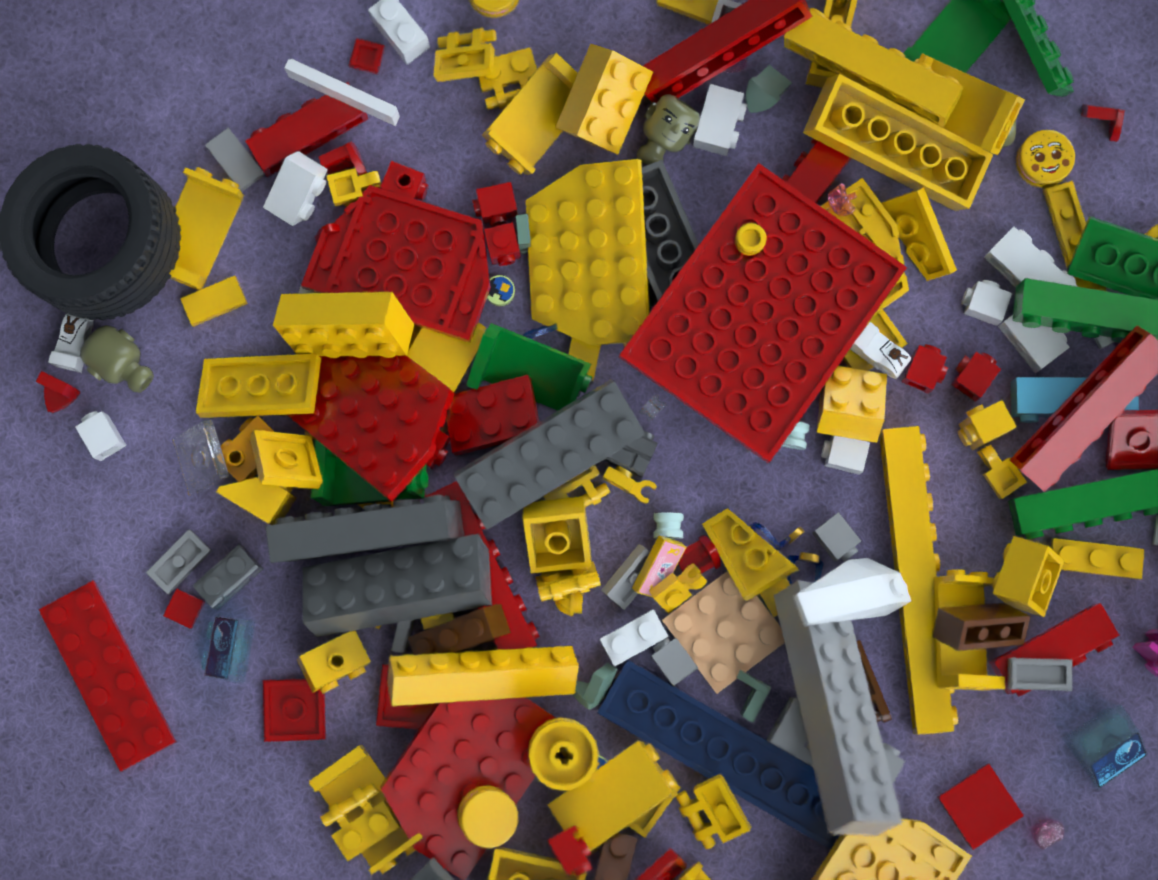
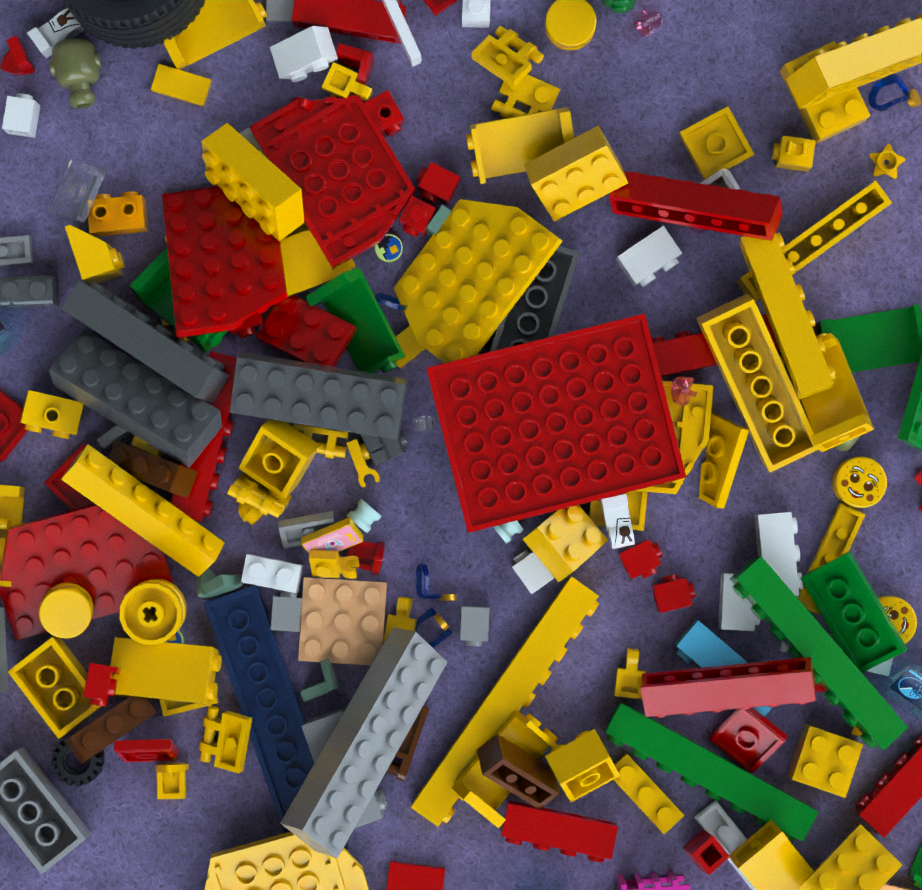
camera: 40 degrees right, 5 degrees up
(258, 385) = (159, 174): yellow plate -> none
(286, 459) = (132, 244): yellow plate -> none
(668, 127) = (605, 232): olive piece -> none
(746, 555) = (399, 582): yellow wing -> none
(750, 239) = (590, 363): yellow tile -> none
(765, 89) = (702, 263): sand green tile -> none
(853, 592) = (447, 670): white wedge -> none
(985, 425) = (645, 635): yellow brick -> none
(986, 302) = (726, 548): white brick -> none
(1040, 674) = (531, 839): light grey tile -> none

